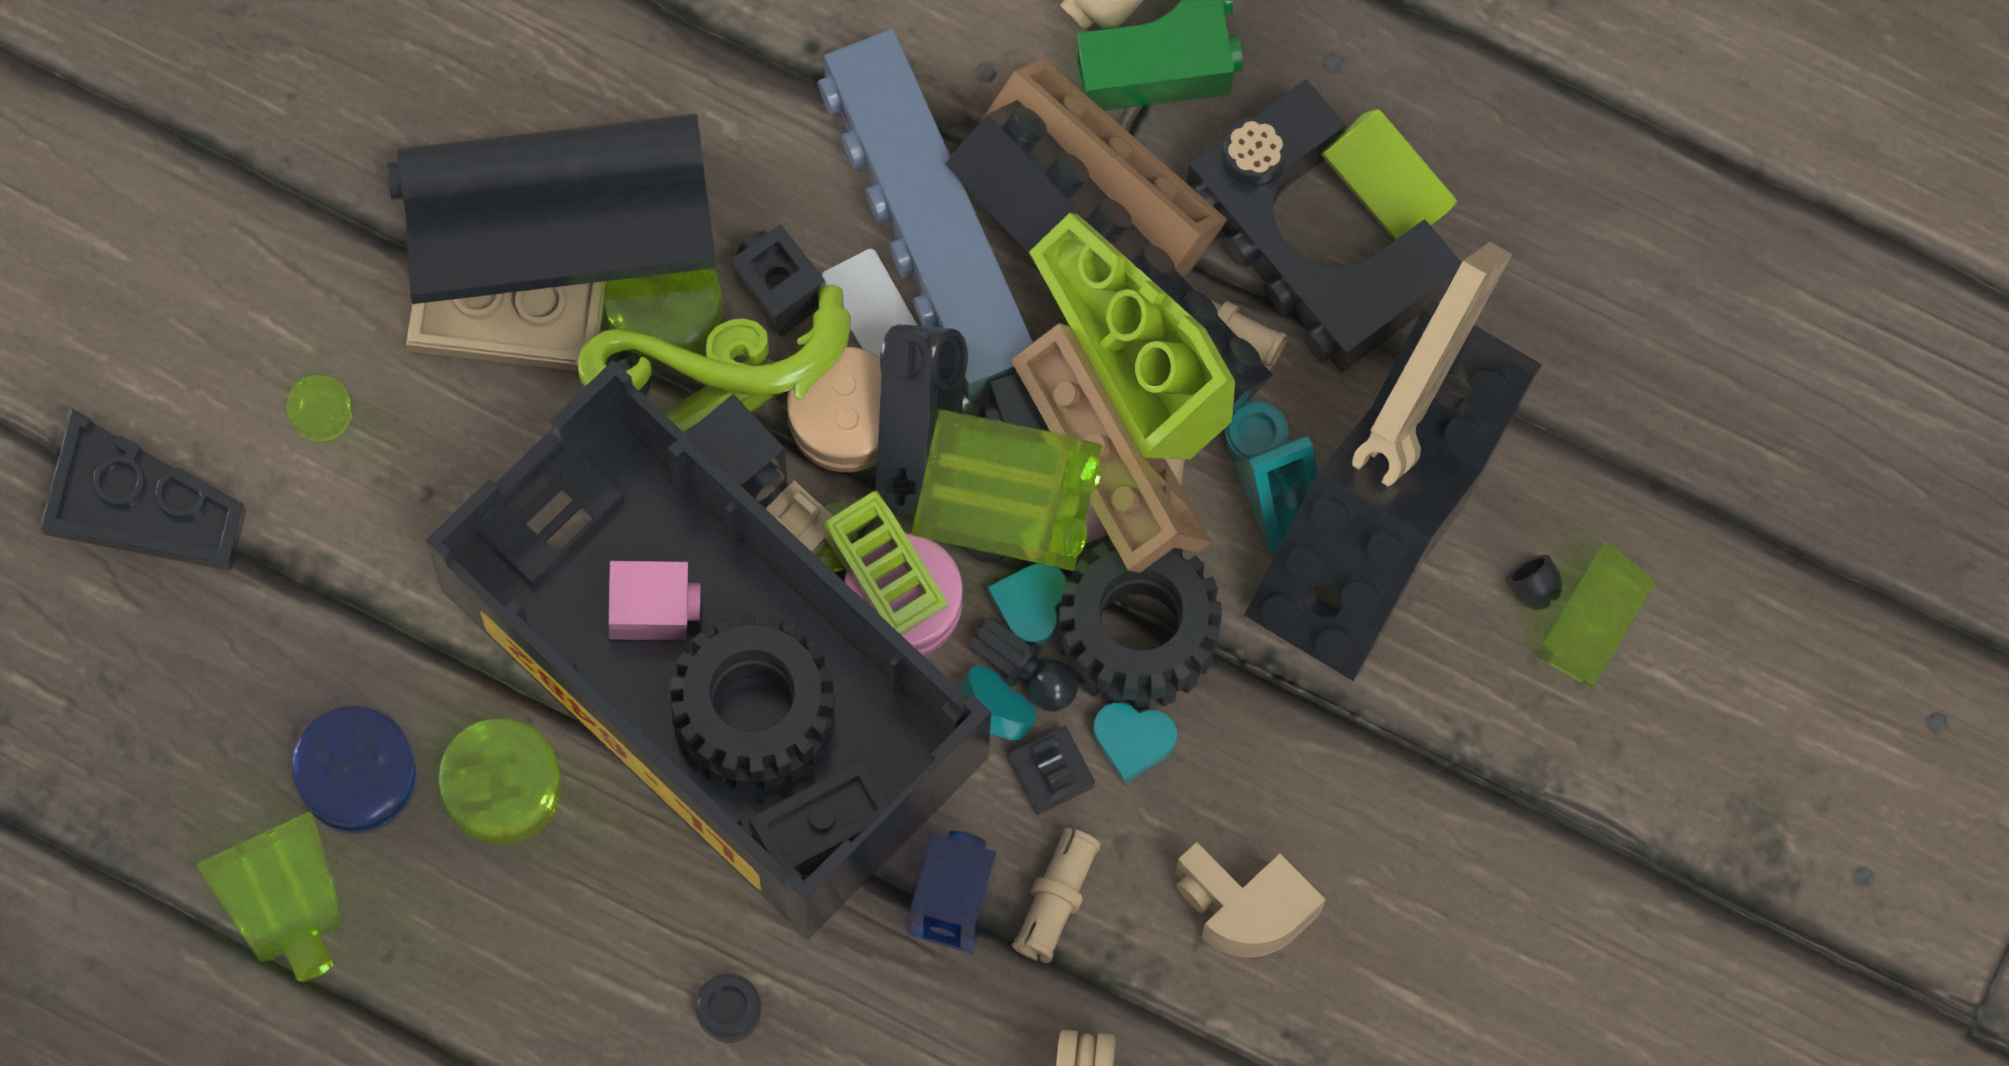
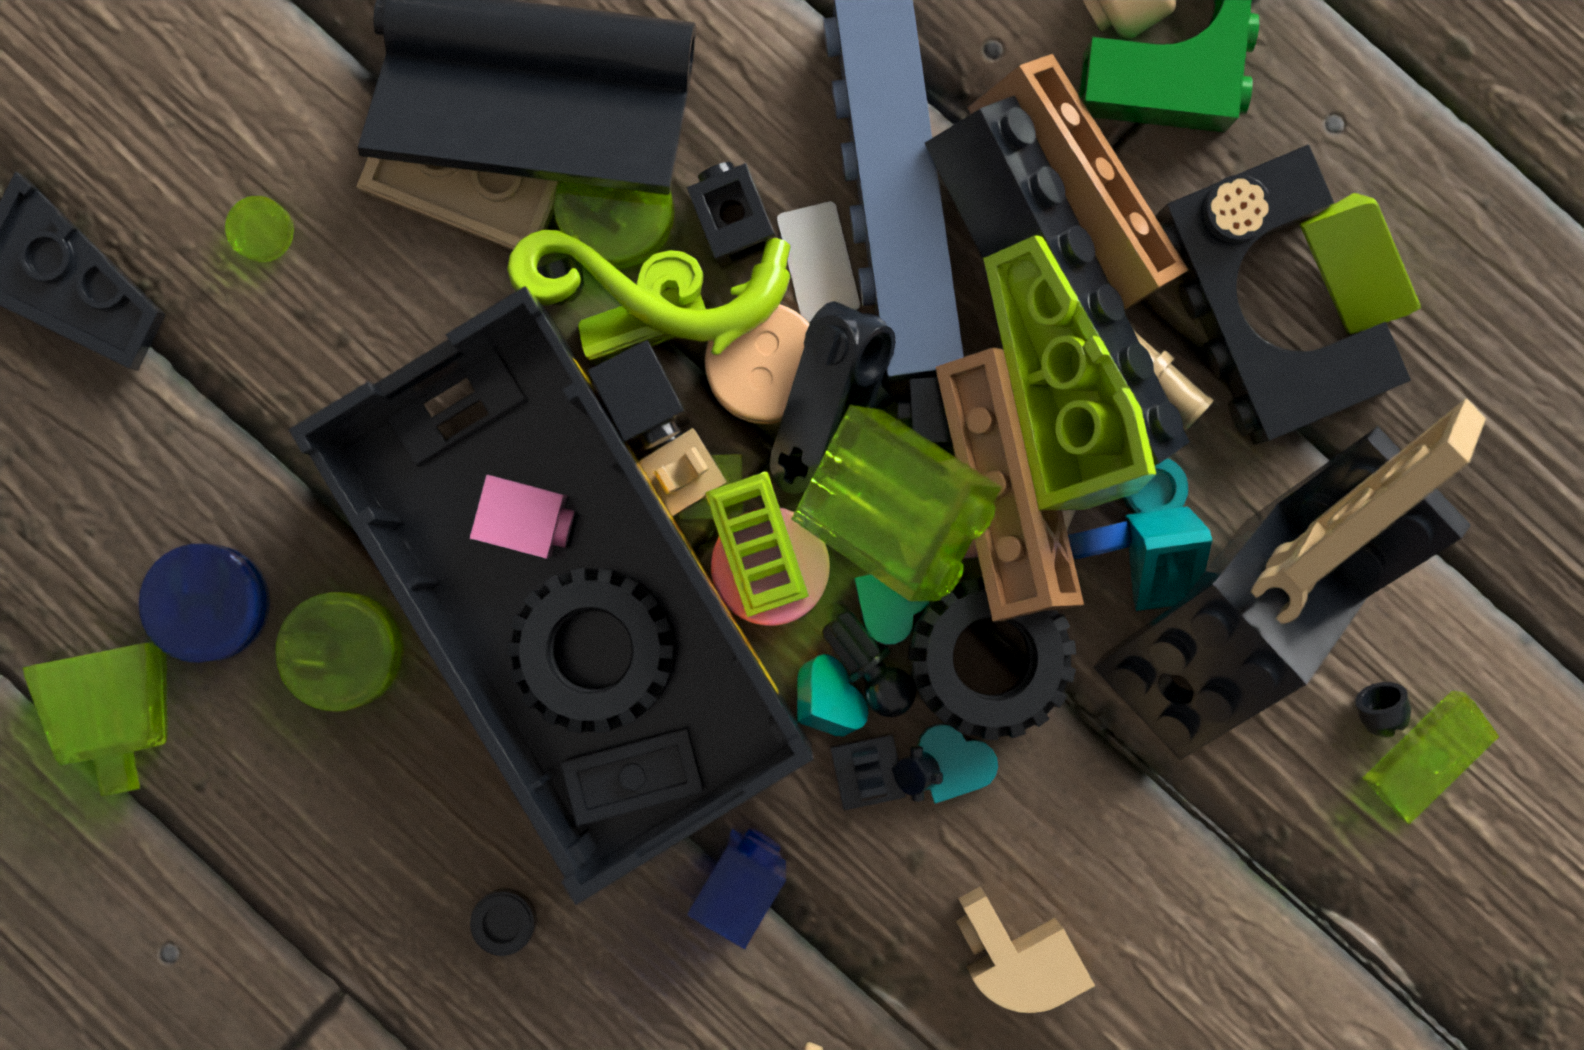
camera: 15 degrees right, 15 degrees up
(1056, 895) = (839, 899): tan pin -> none
(1099, 752) = (917, 773): none -> black piece
(1215, 490) = (1100, 540): none -> blue tile

